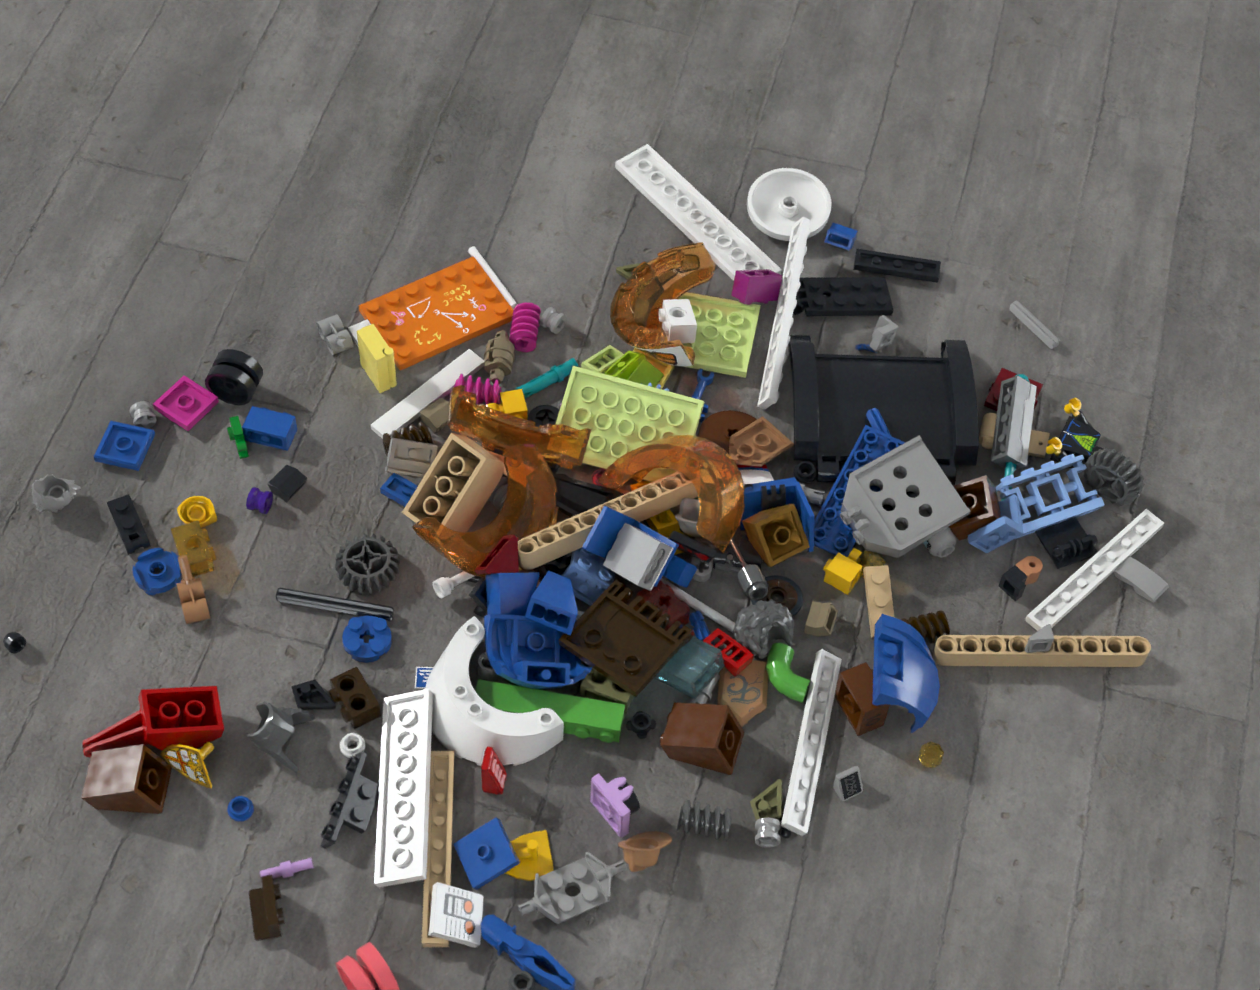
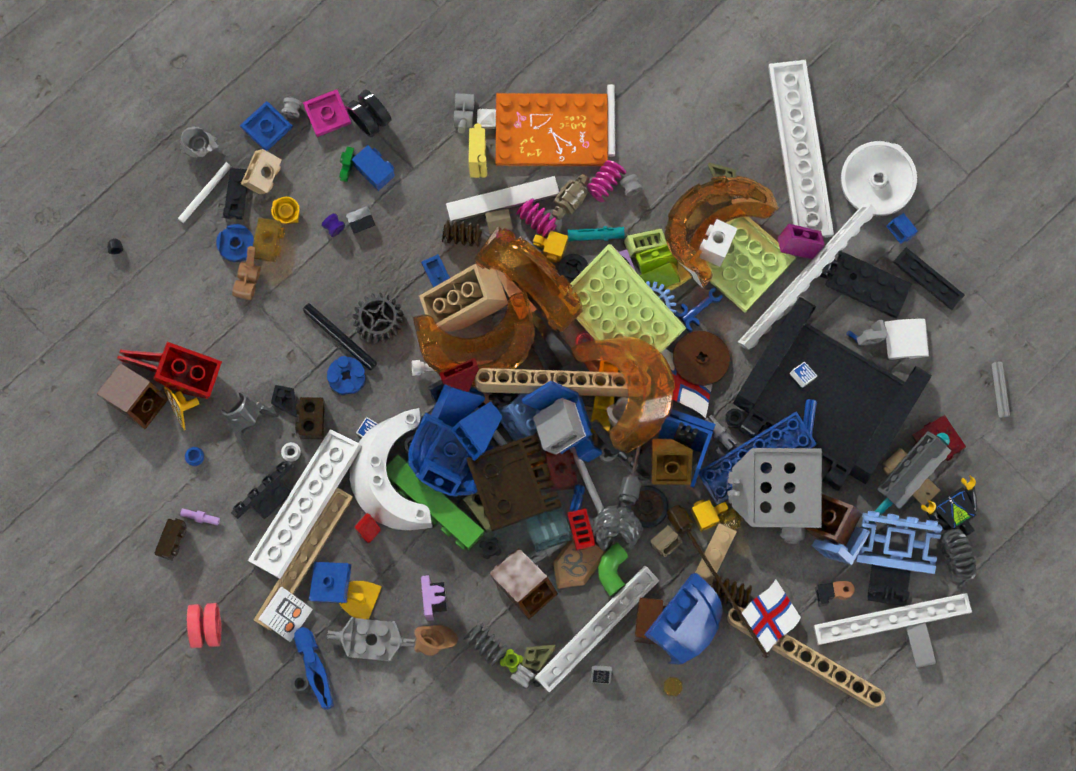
camera: 35 degrees right, 20 degrees up
(90, 541) = (203, 194): none -> white bar
(146, 486) = (253, 178): none -> tan brick
(410, 457) = (455, 250): light grey plate -> none
(743, 818) = (506, 660): none -> lime plate
(757, 443) = (712, 377): medium nougat tile -> none
(847, 392) = (803, 374): none -> white tile
(917, 324) = (906, 339): none -> white slope
(969, 624) = (767, 615): none -> flag
(1041, 640) = (802, 654): light grey slope -> none

